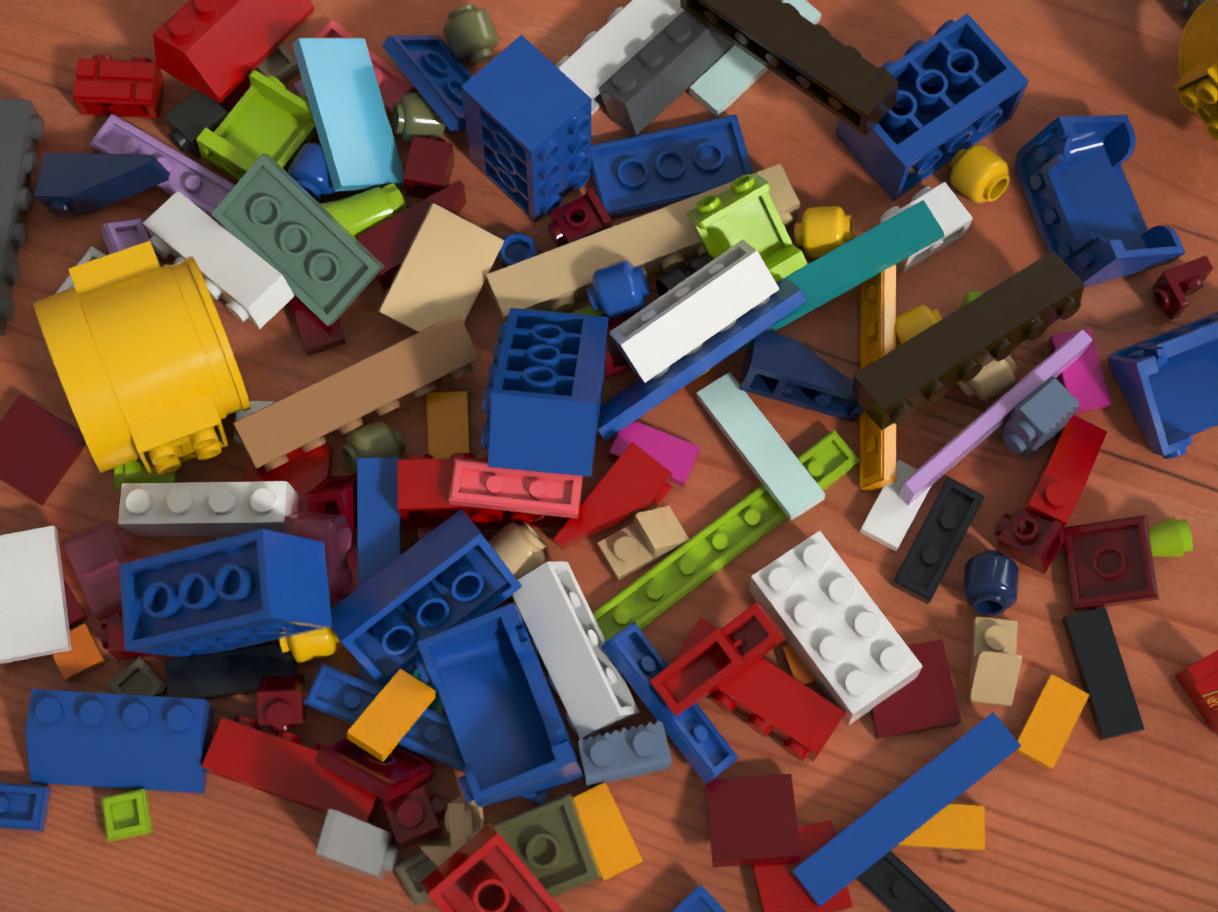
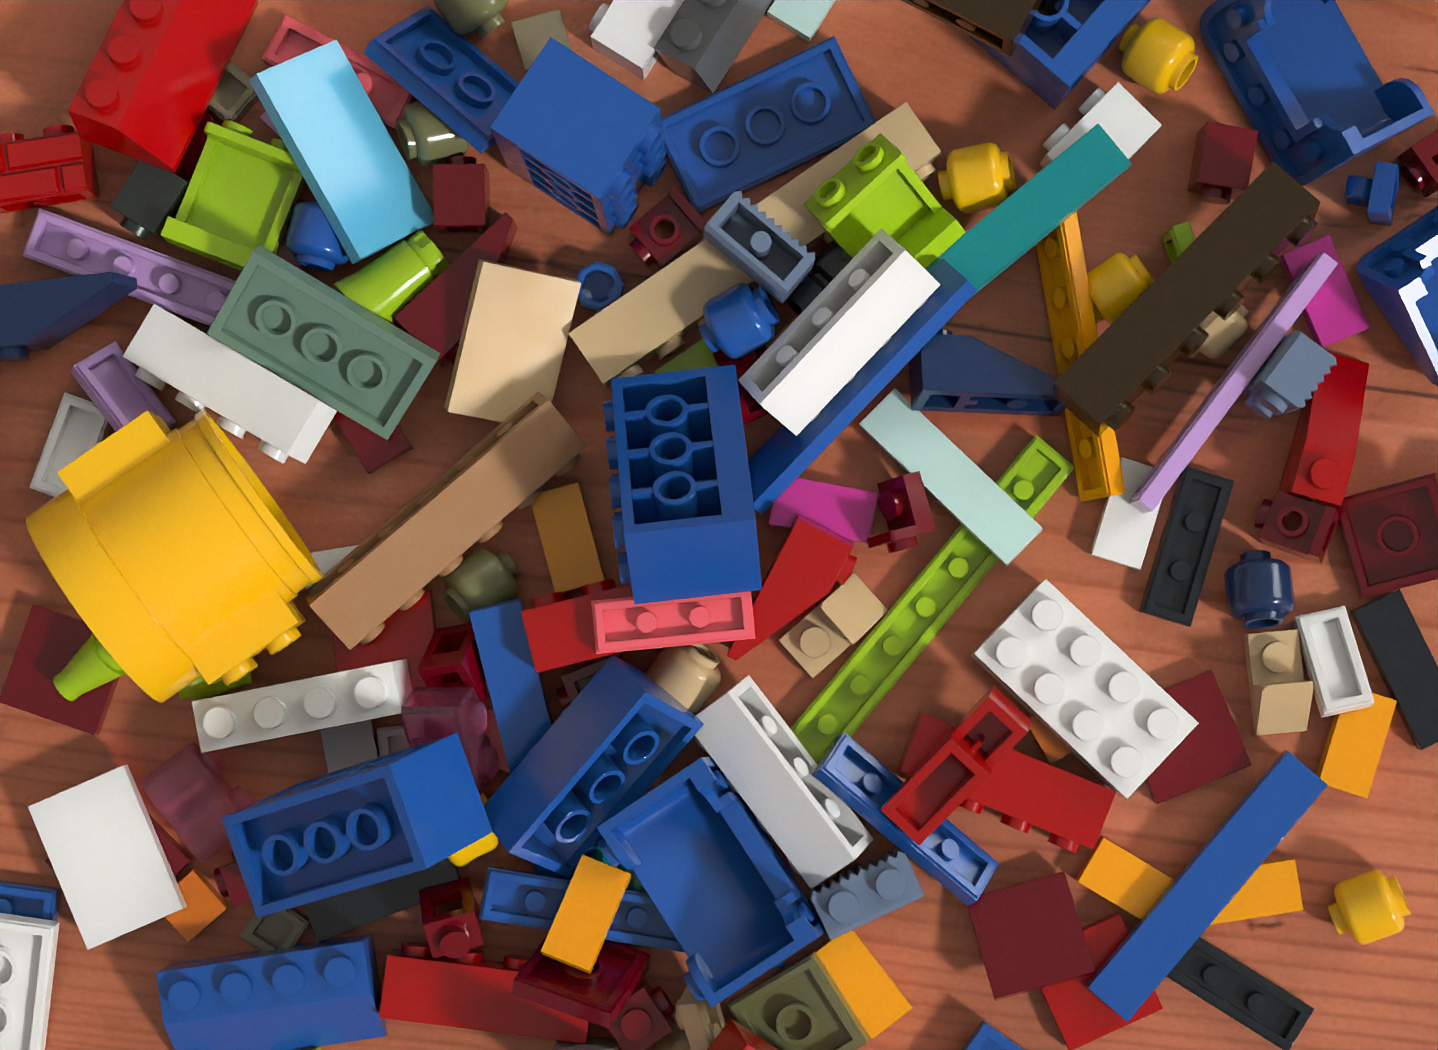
camera: 10 degrees left, 15 degrees up
(55, 443) = (87, 670): none -> lime cone
(646, 233) = (759, 246): none -> sand blue brick
(719, 464) = (906, 512): none -> dark red bracket
(838, 792) = (1122, 878): none -> light orange tile
(1014, 253) = (1222, 162): none -> dark red brick
(1040, 857) = (1369, 907): none -> yellow head
(1042, 652) = (1333, 661): none -> white tile
(1132, 304) = (1377, 194): none -> blue tile

